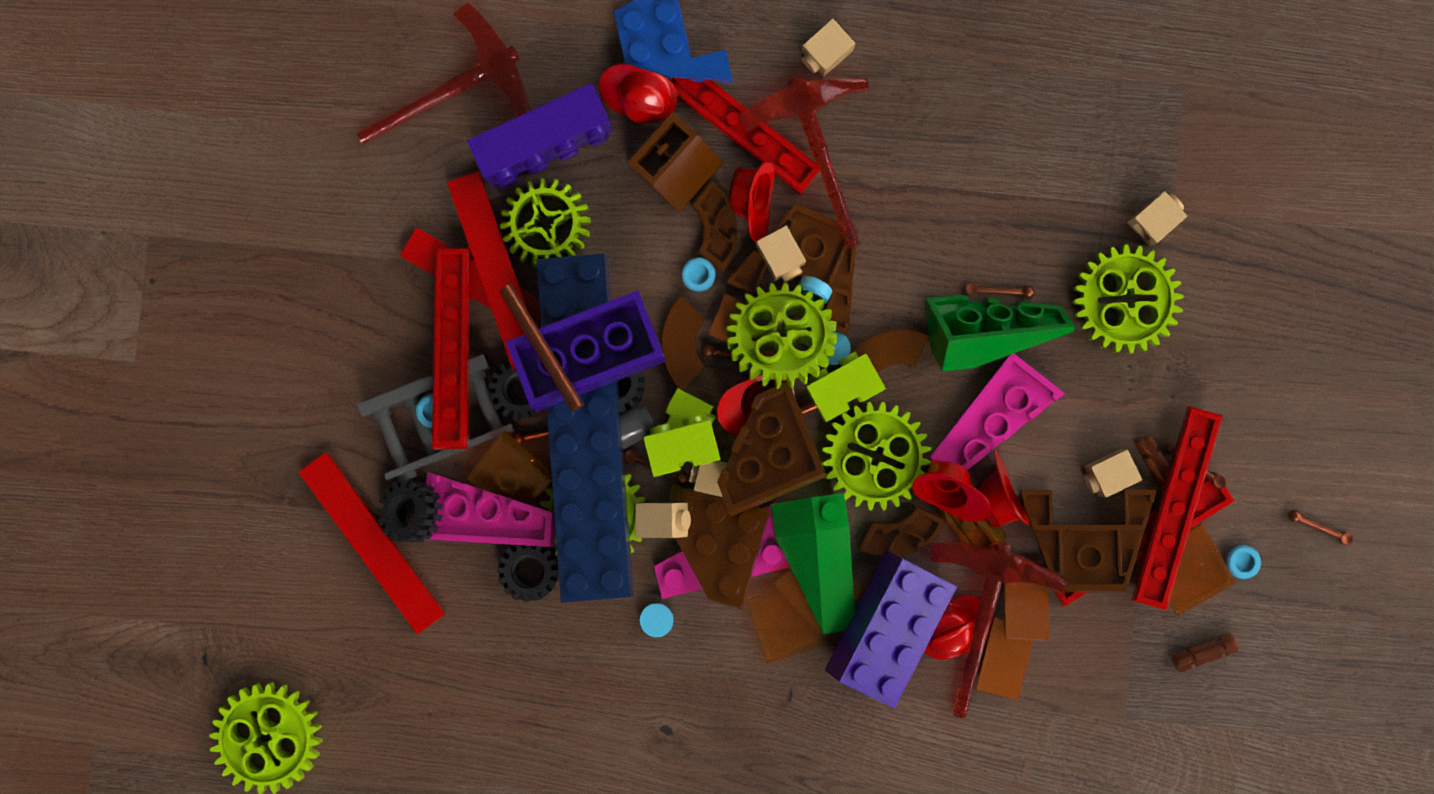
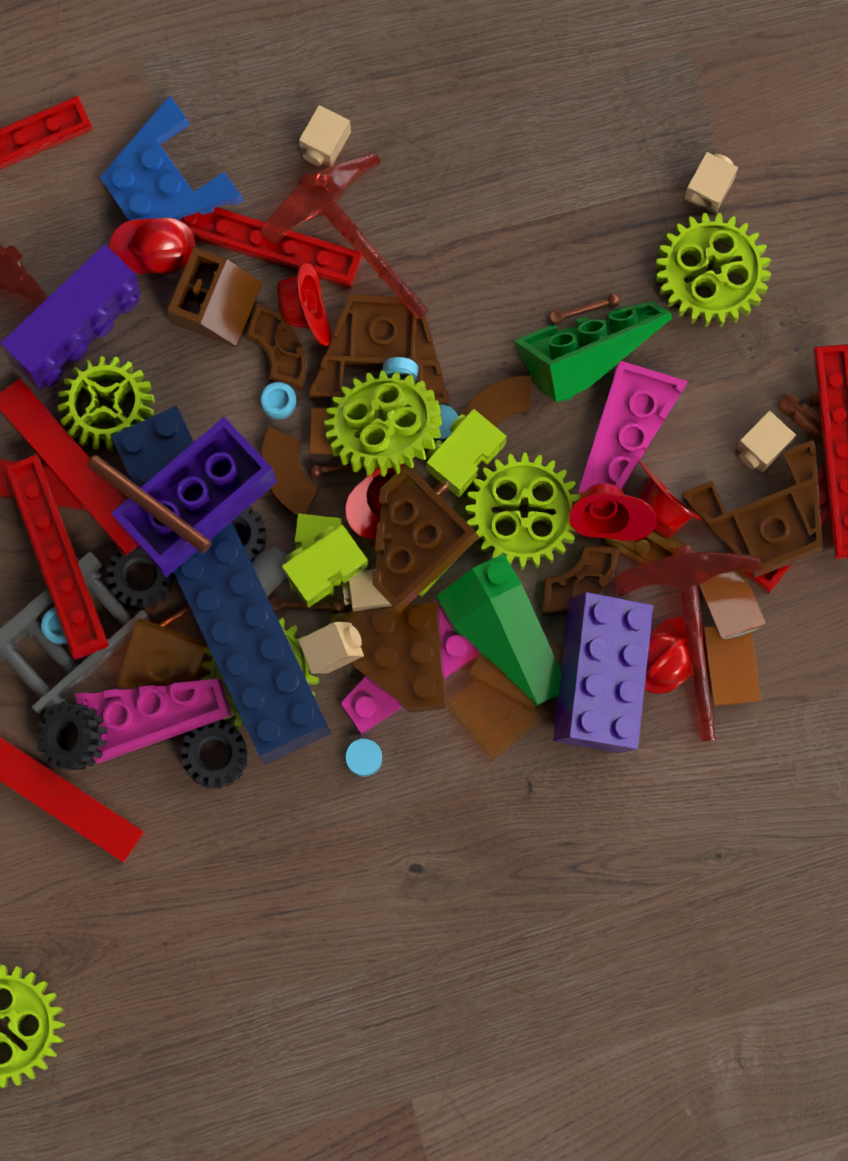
camera: 20 degrees left, 10 degrees down
(781, 254) = (353, 345): tan brick -> none

